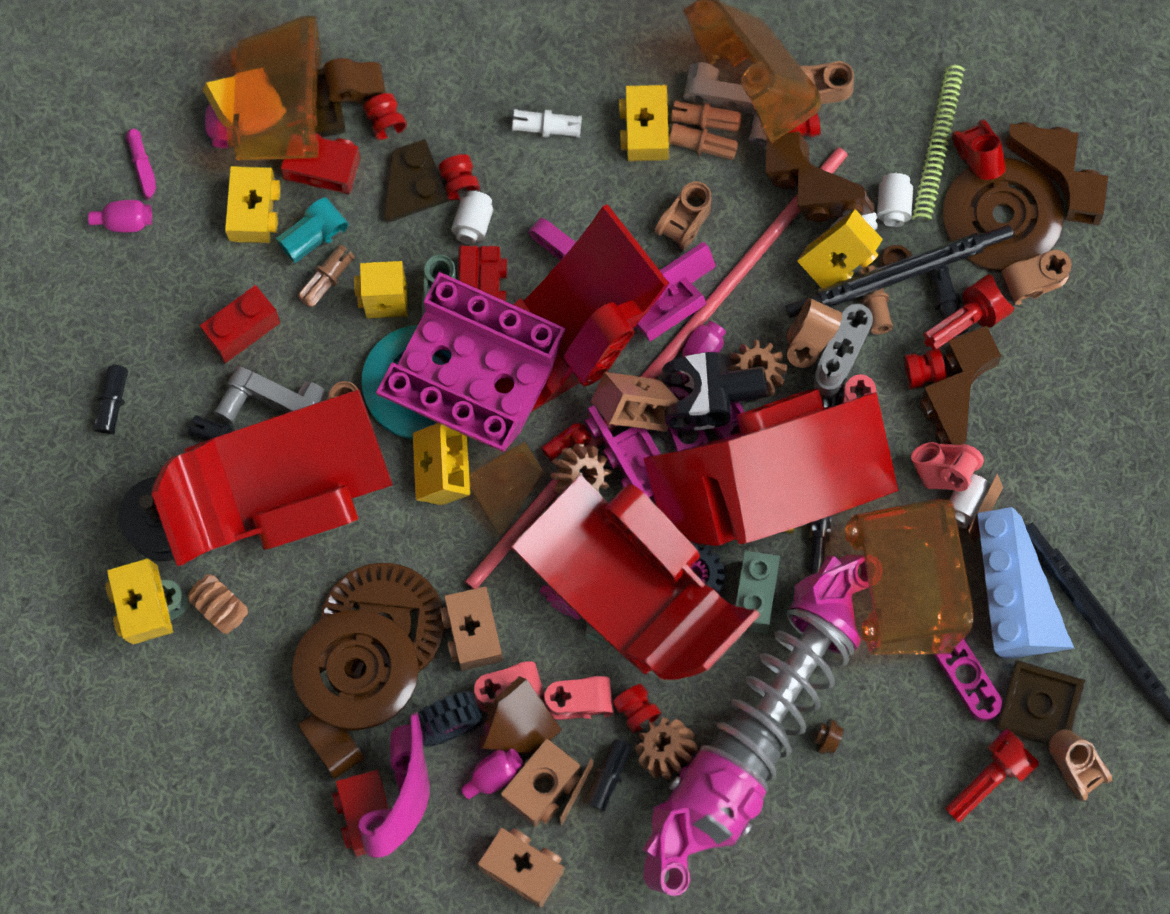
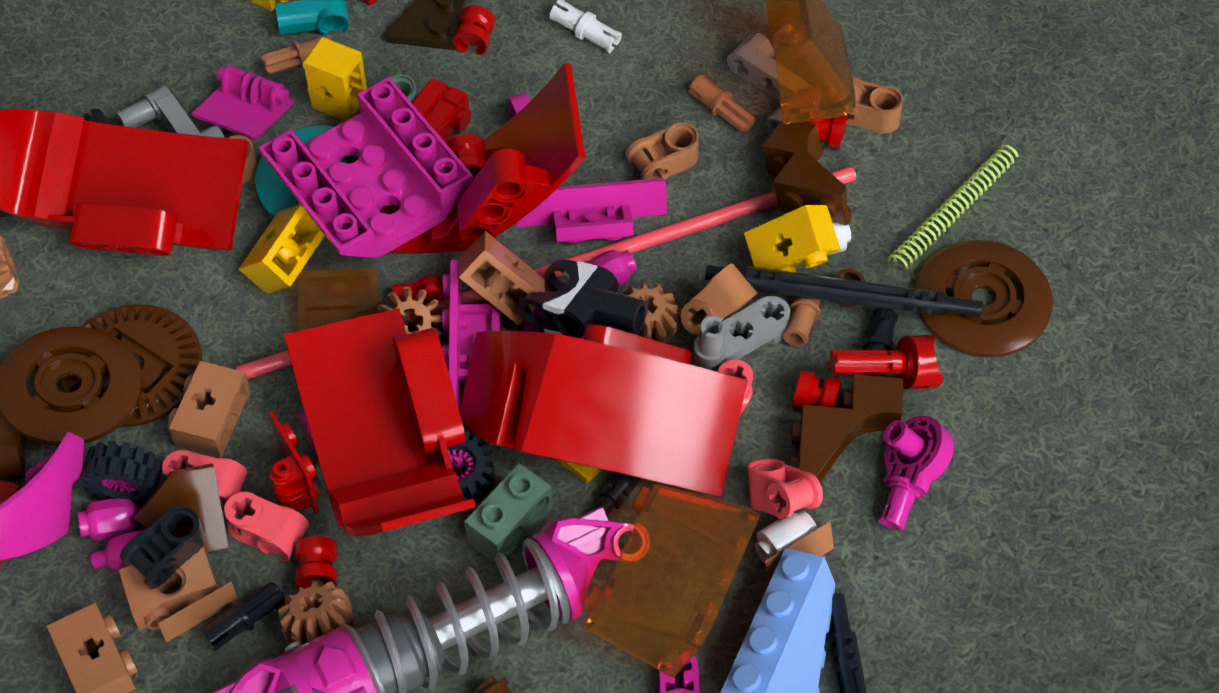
camera: 25 degrees right, 15 degrees down
(111, 399) = (37, 65): black axle -> none
(240, 324) = (190, 53): red brick -> none
(314, 349) = (244, 103): none -> dark pink hinge
(457, 755) = (108, 519): none -> dark pink plant
(472, 217) = (464, 67): white brick -> none
(529, 761) = (162, 548): none -> black piece
(541, 304) = (470, 151): none -> red wheel
(586, 650) = (294, 474): none -> red hinge
(651, 105) = (676, 62): yellow brick -> none
(706, 116) = (738, 84): nougat axle -> none
(895, 200) = (879, 232): white brick -> none
(981, 150) = (992, 227): red piece -> none
(1029, 391) = (925, 464): none -> dark pink pin
(1032, 276) = (984, 362): nougat piece -> none
(1054, 155) = (1068, 267): reddish brown arch -> none

